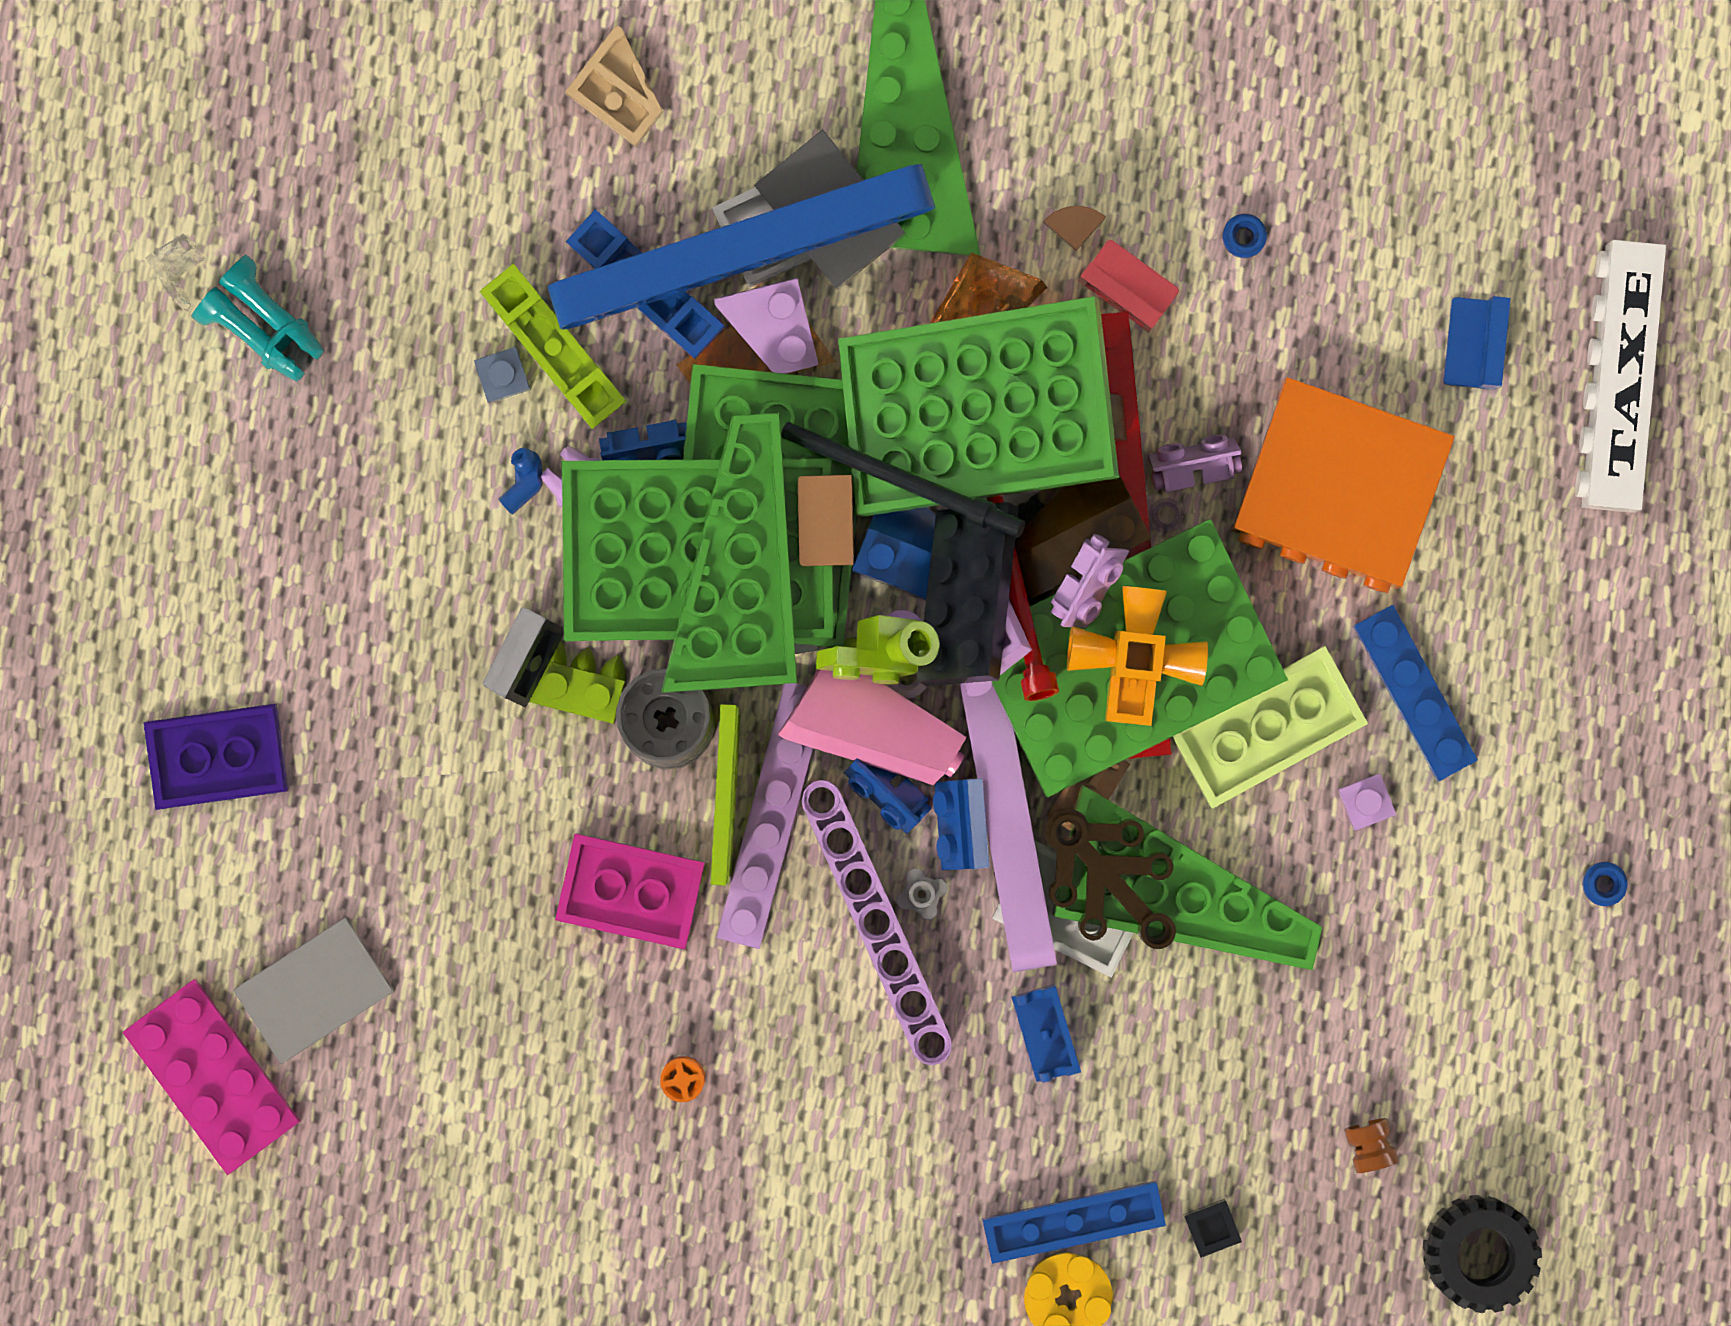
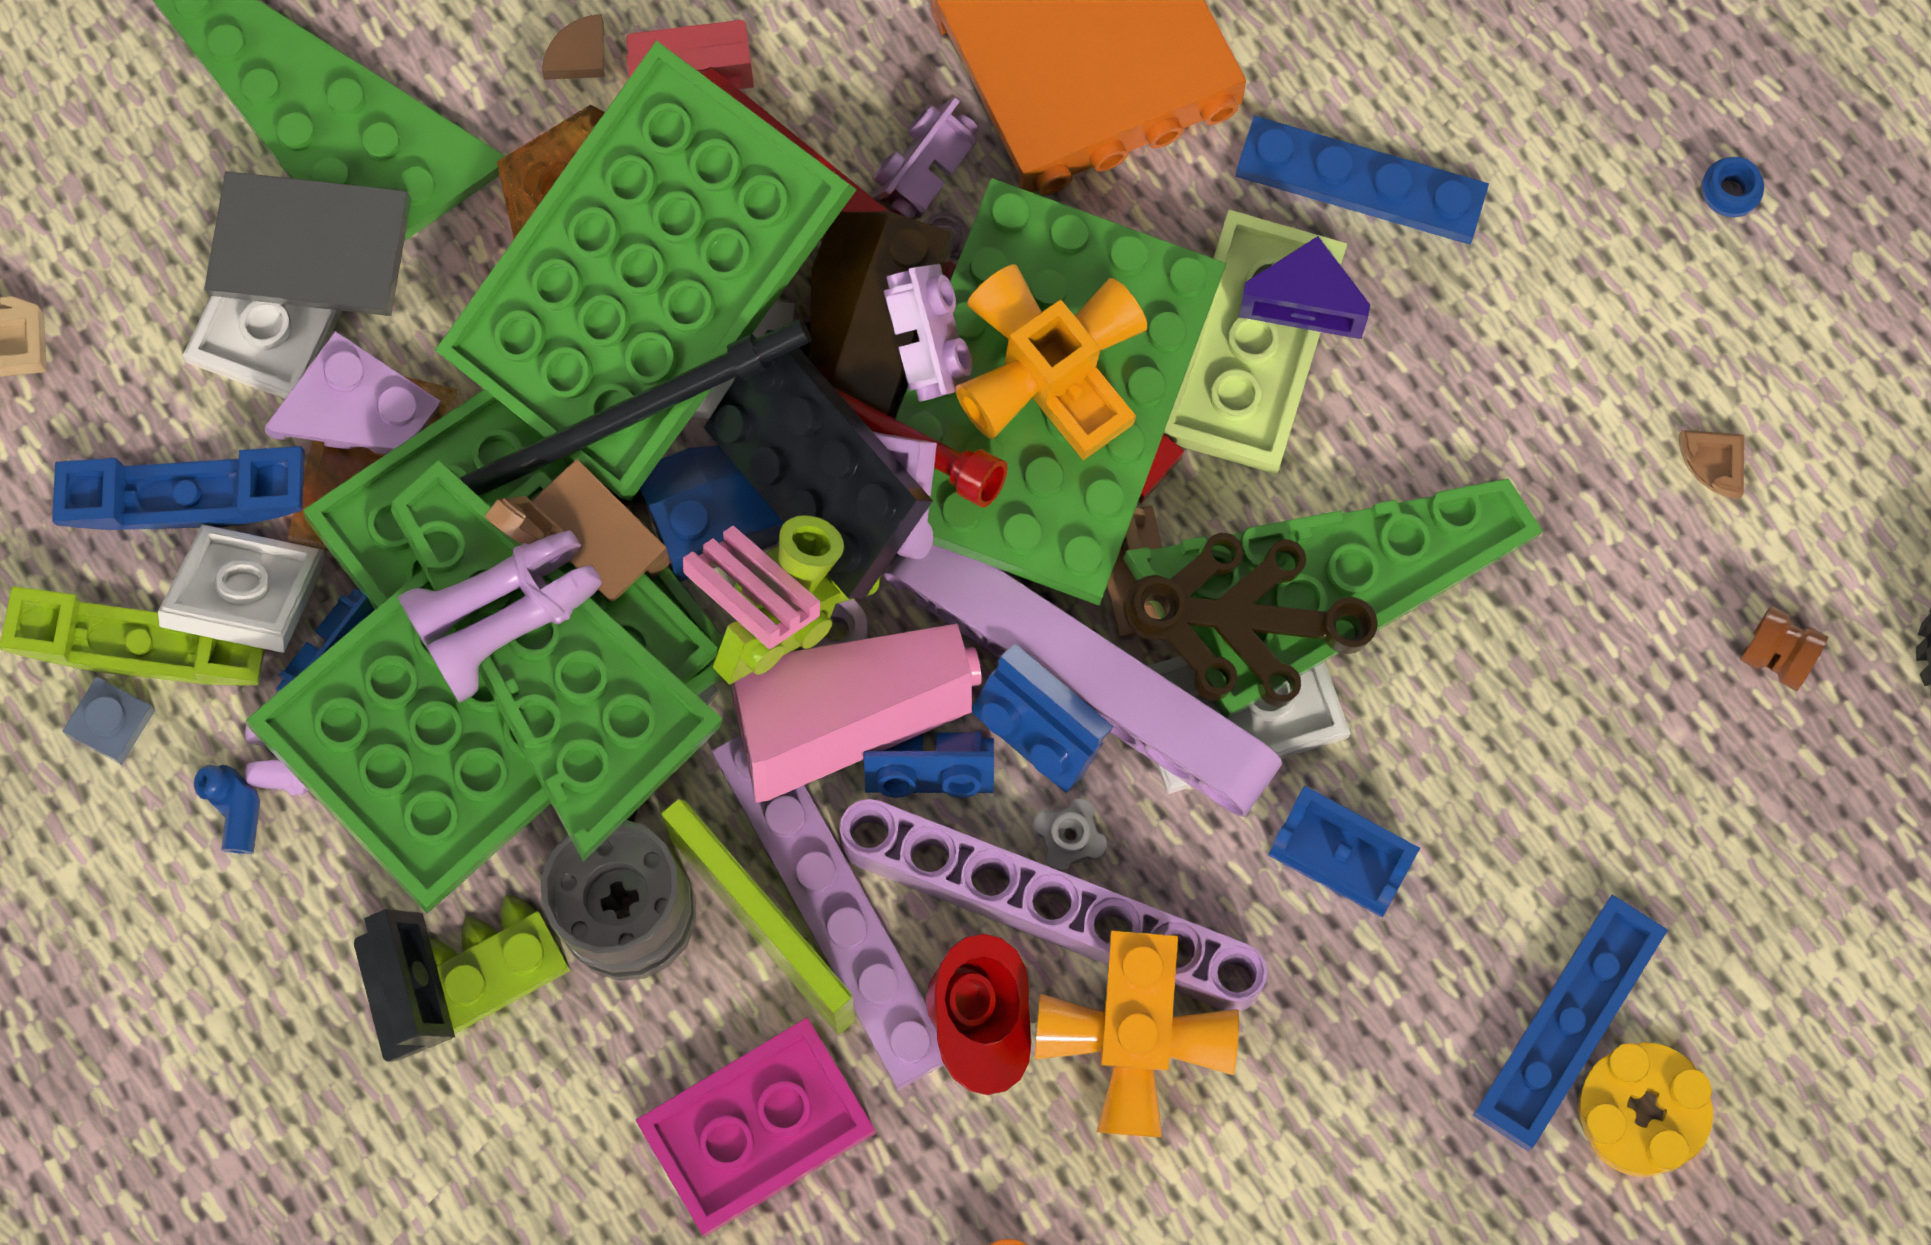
camera: 45 degrees left, 15 degrees down
(628, 370) = (241, 588): none -> white tile
(703, 500) = (463, 651): none -> lavender piece
(741, 246) = (242, 357): blue beam -> none
(788, 945) = (982, 1013): none -> red piece
(791, 491) = (521, 520): none -> medium nougat tile
(854, 1026) = (1137, 1031): none -> light orange brick
(885, 621) = (760, 581): none -> bright pink tile
(1212, 1228) = (1716, 888): black plate -> none
(1316, 735) = (1307, 293): none -> dark purple slope
(1367, 802) = (1423, 324): lavender plate -> none
(1442, 1017) = (1715, 459): none -> medium nougat tile

